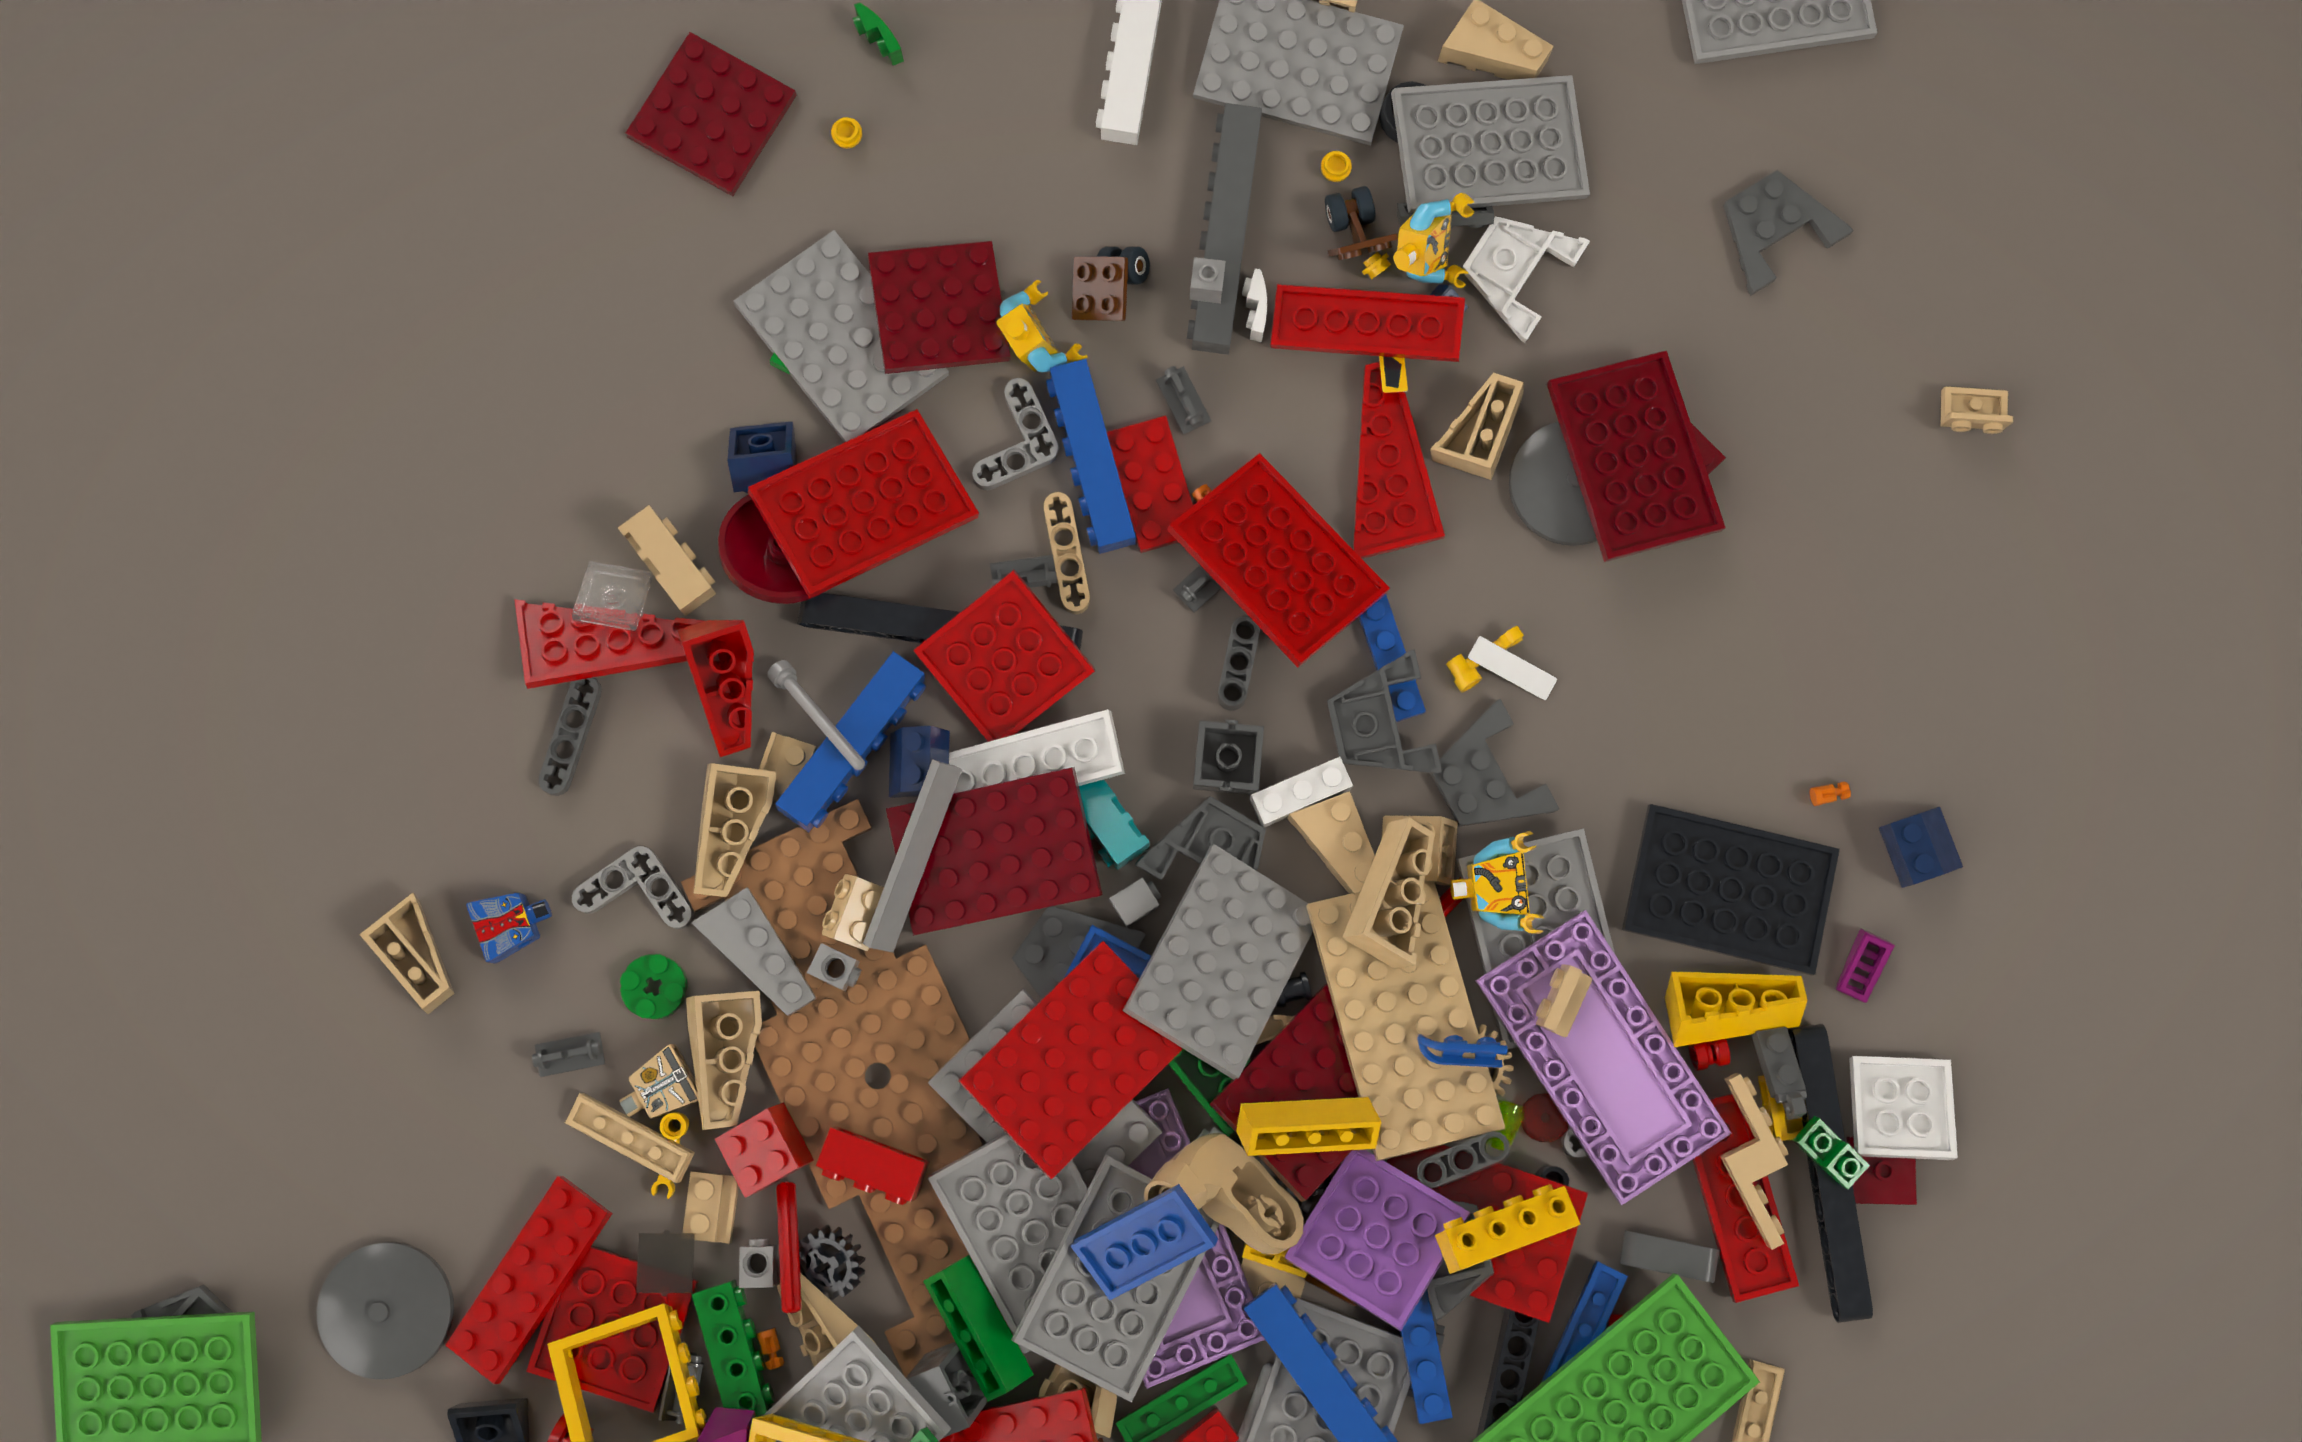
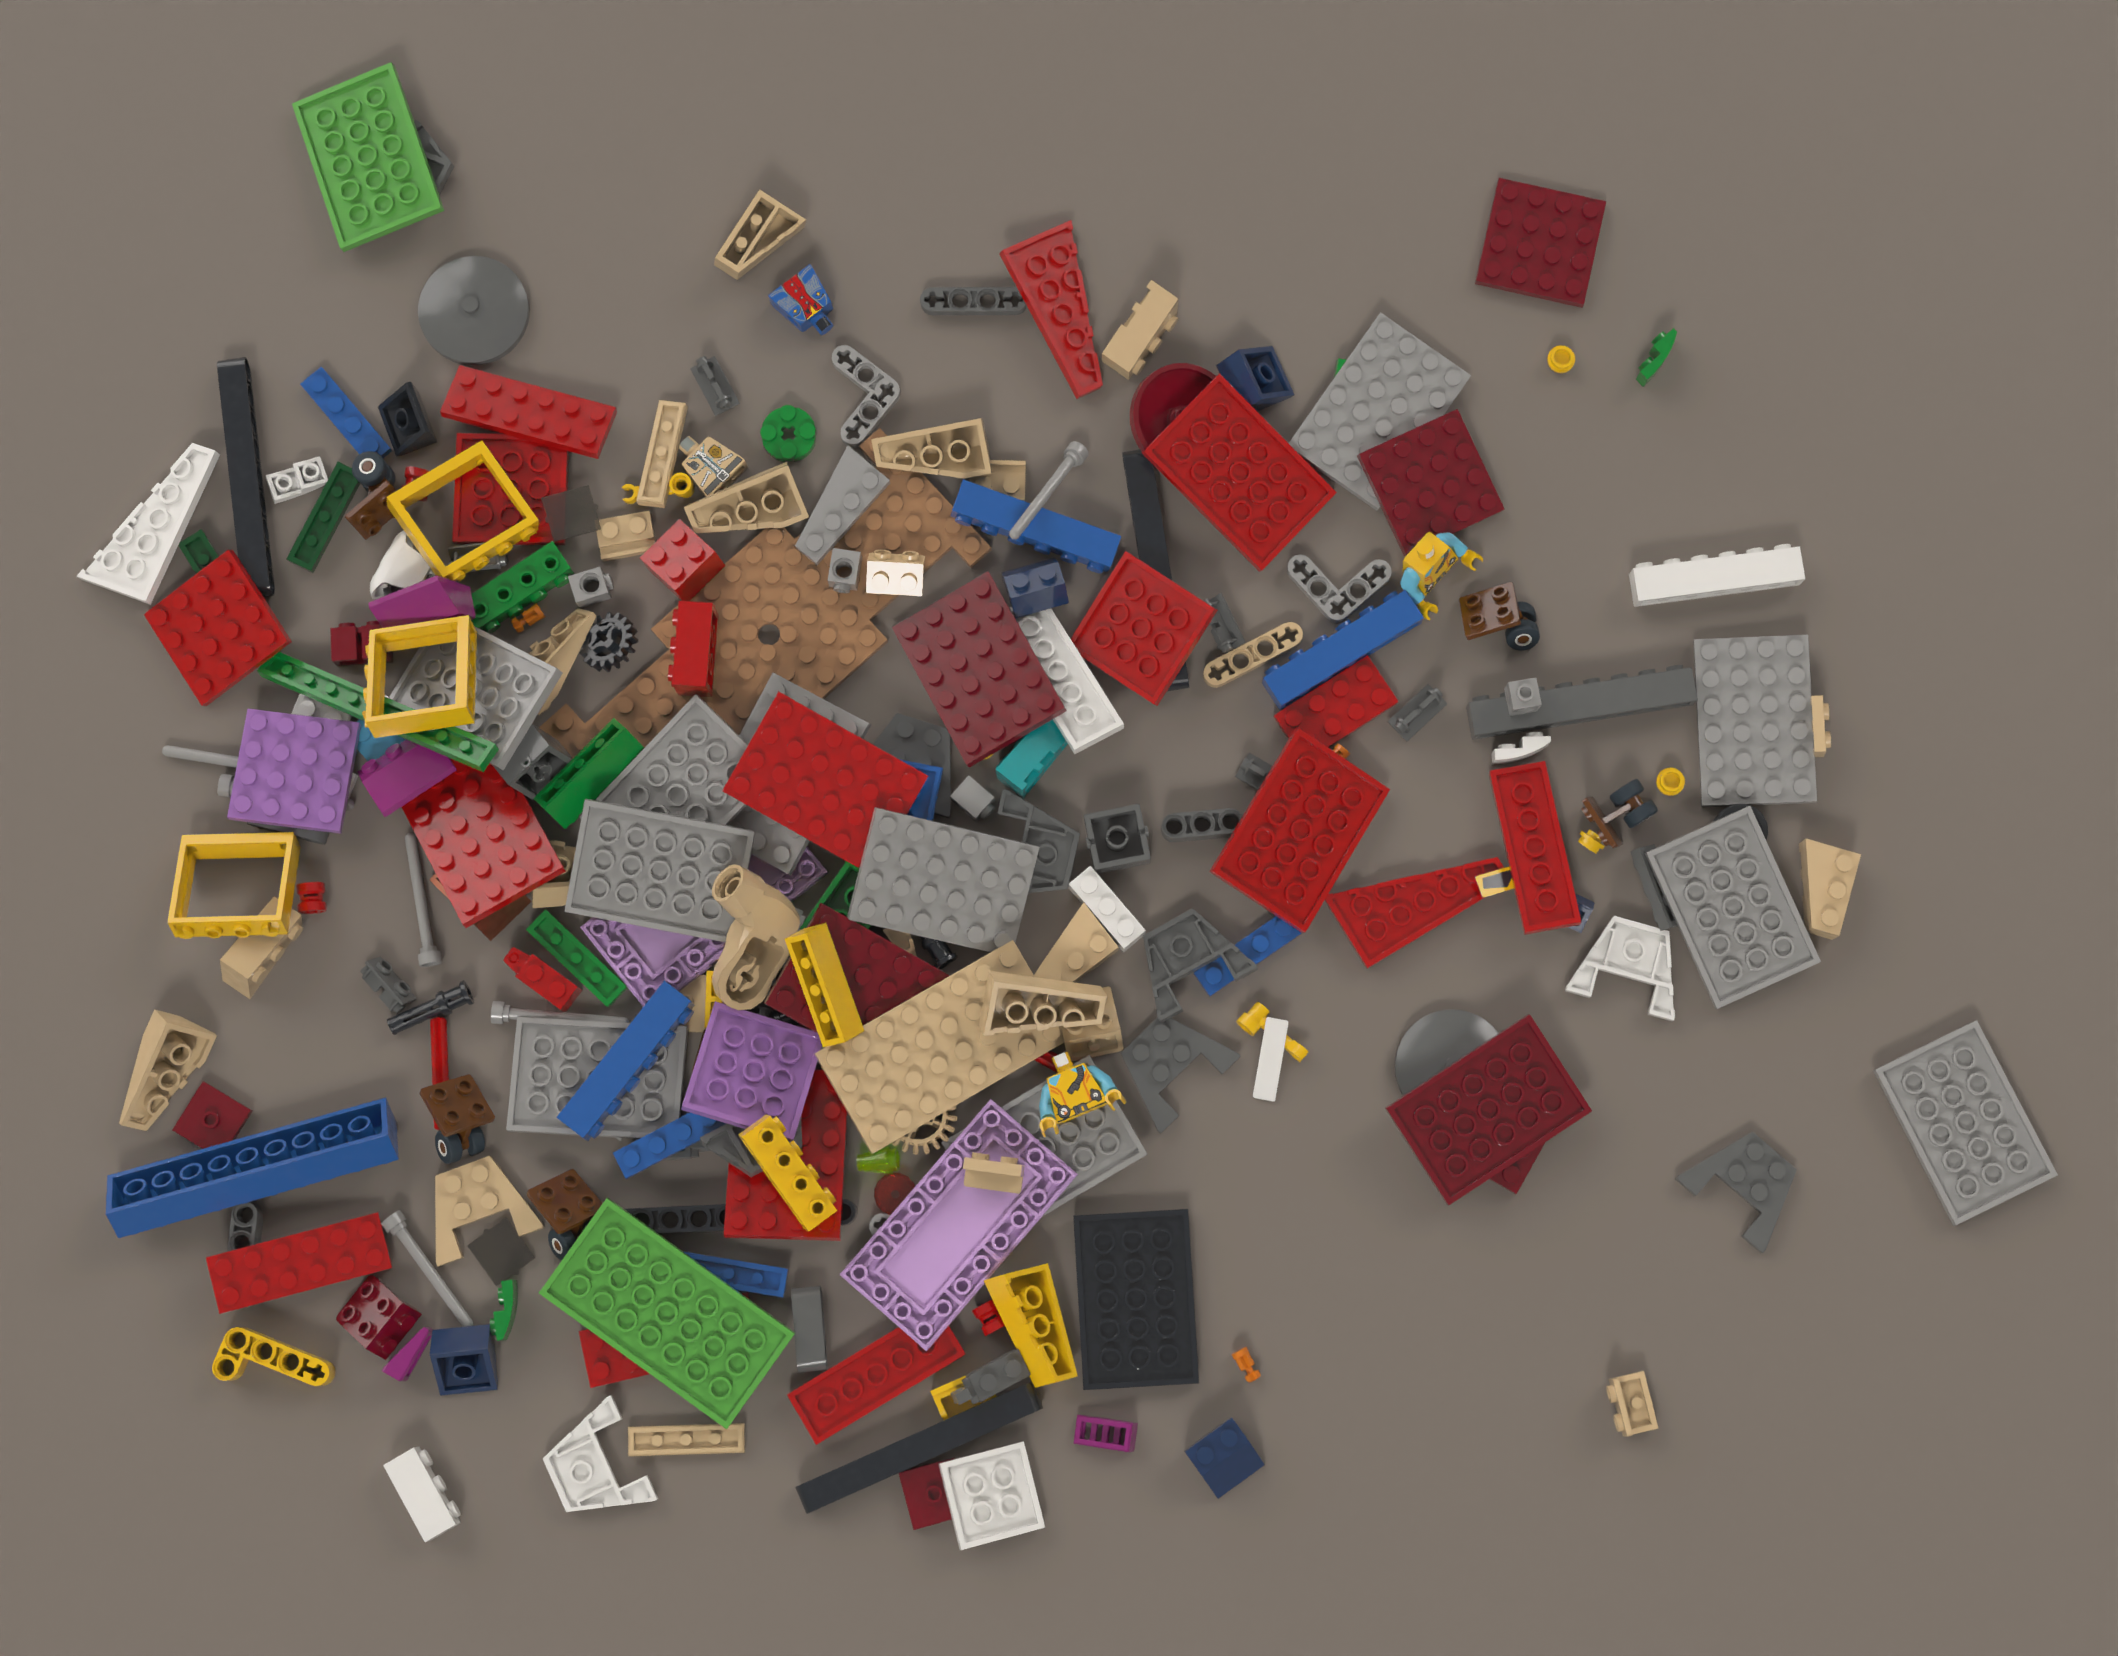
camera: 80 degrees right, 0 degrees up
(612, 595) = (1098, 296): clear plate -> none
(721, 667) = (1059, 403): red wedge -> none
(788, 1247) = (610, 605): red axle -> none
(912, 856) = (953, 602): light grey tile -> none
(1144, 1242) = (691, 876): blue plate -> none
(1425, 241) = (1620, 873): torso -> none
(1446, 1160) = (833, 1114): dark grey beam -> none
(1455, 1046) = (924, 1091): blue piece -> none
(1482, 429) = (1473, 973): tan wedge -> none
(1755, 1159) = (909, 1375): tan bracket -> none
(1831, 1152) = (933, 1439): green slope -> none

